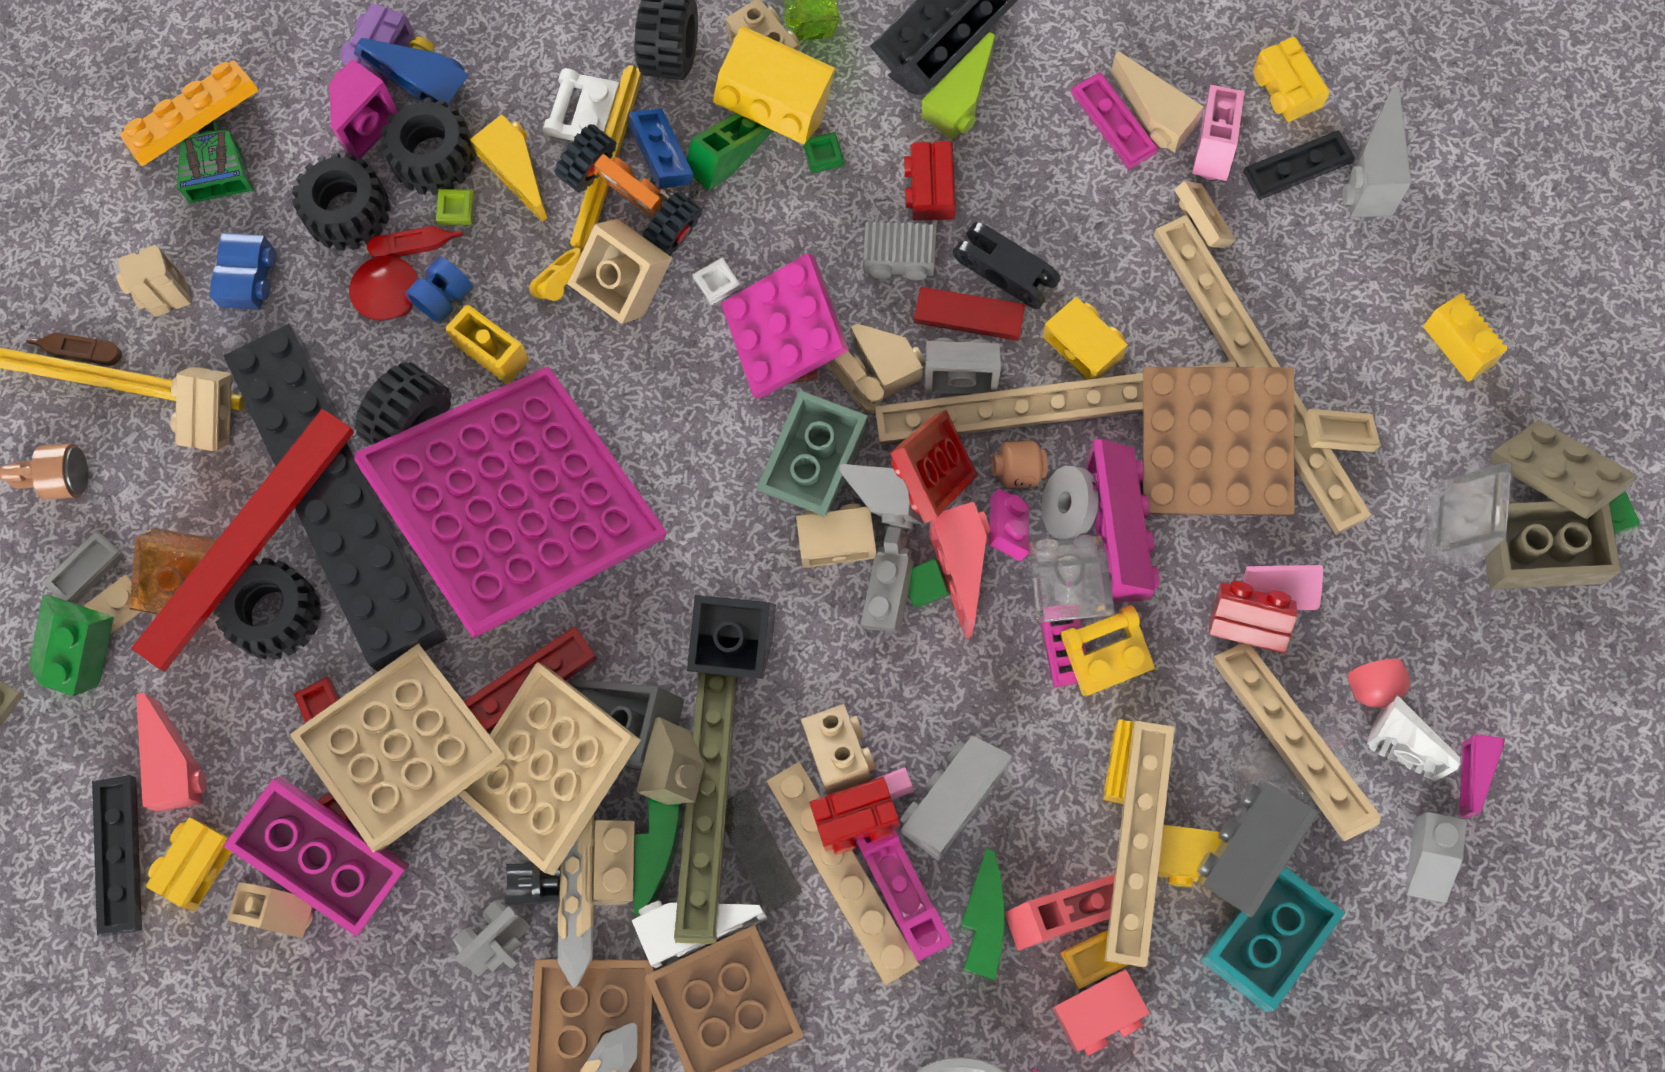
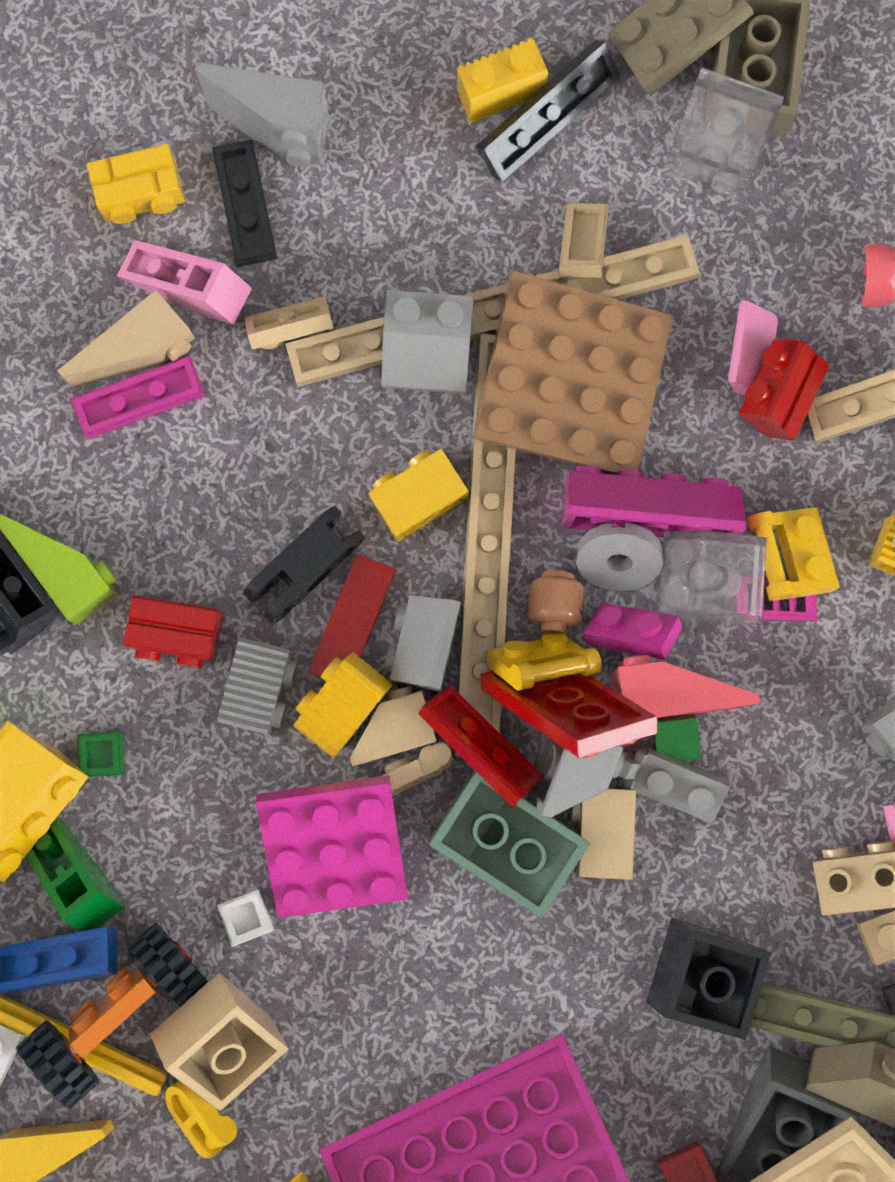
camera: 85 degrees left, 10 degrees up
(887, 416) = (481, 745): none -> red tile
(900, 310) = (341, 704): none -> yellow brick
(974, 465) = (541, 660): none -> yellow plate
(1215, 315) = (426, 341): none -> light grey slope
(1451, 383) = (549, 110): none -> black plate

